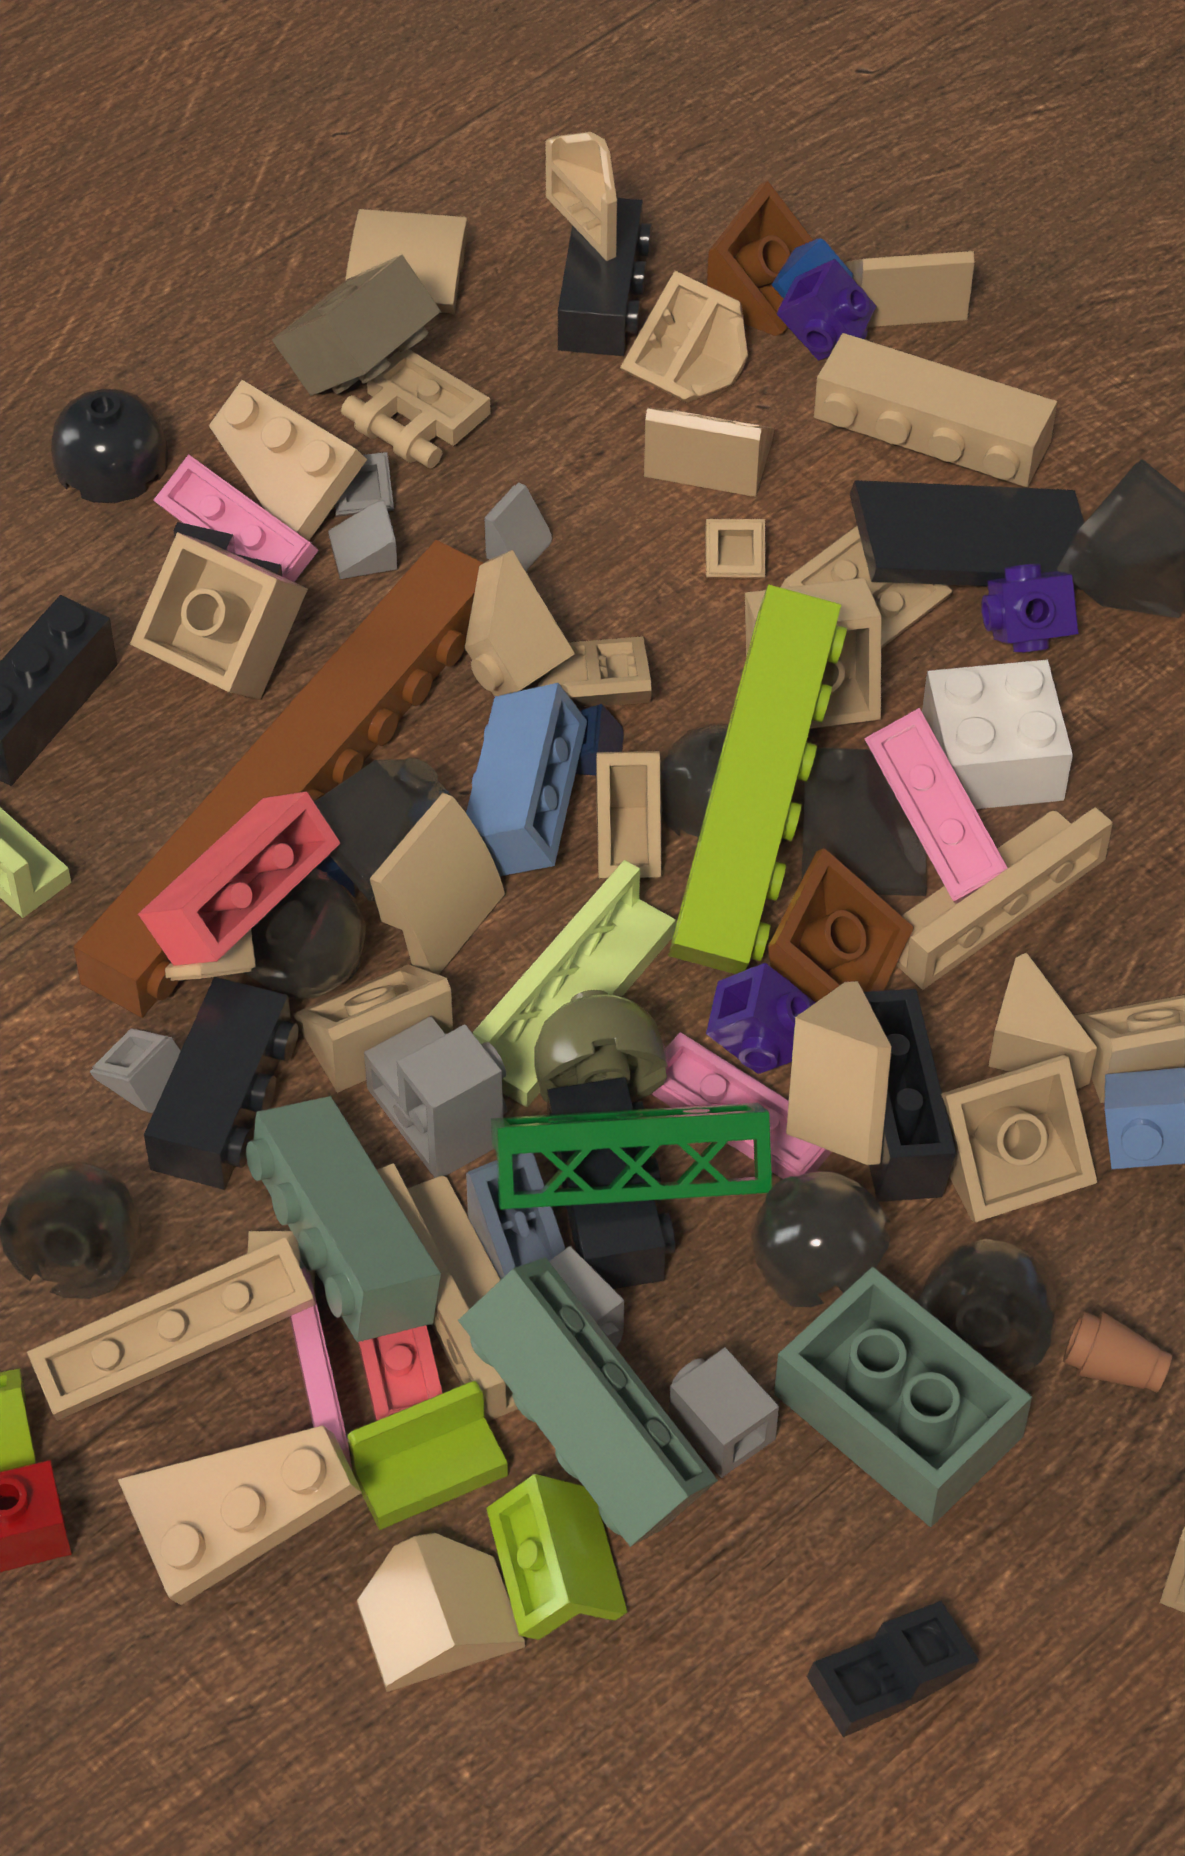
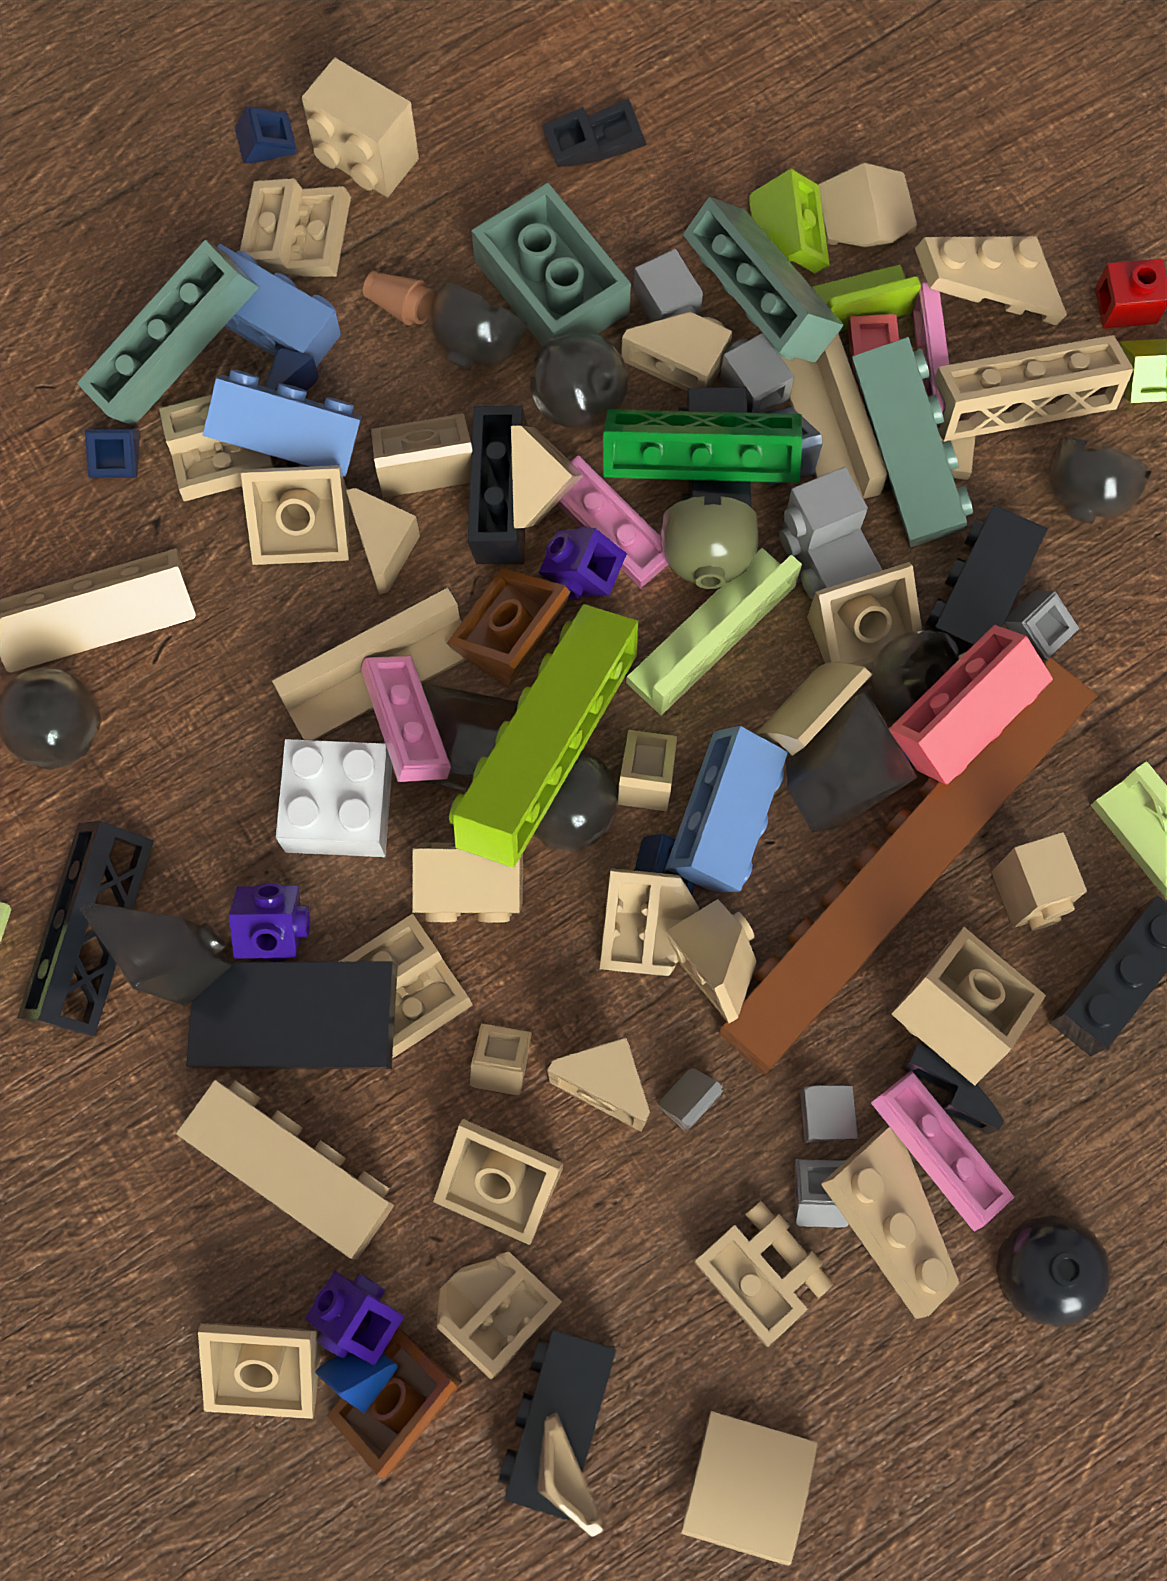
camera: 170 degrees left, 20 degrees up
(143, 744) = (1039, 882): none -> tan brick
(358, 327) = (816, 1352): dark tan brick -> none
(618, 504) = (605, 1080): none -> tan slope
(685, 1320) = (678, 349): none -> tan slope

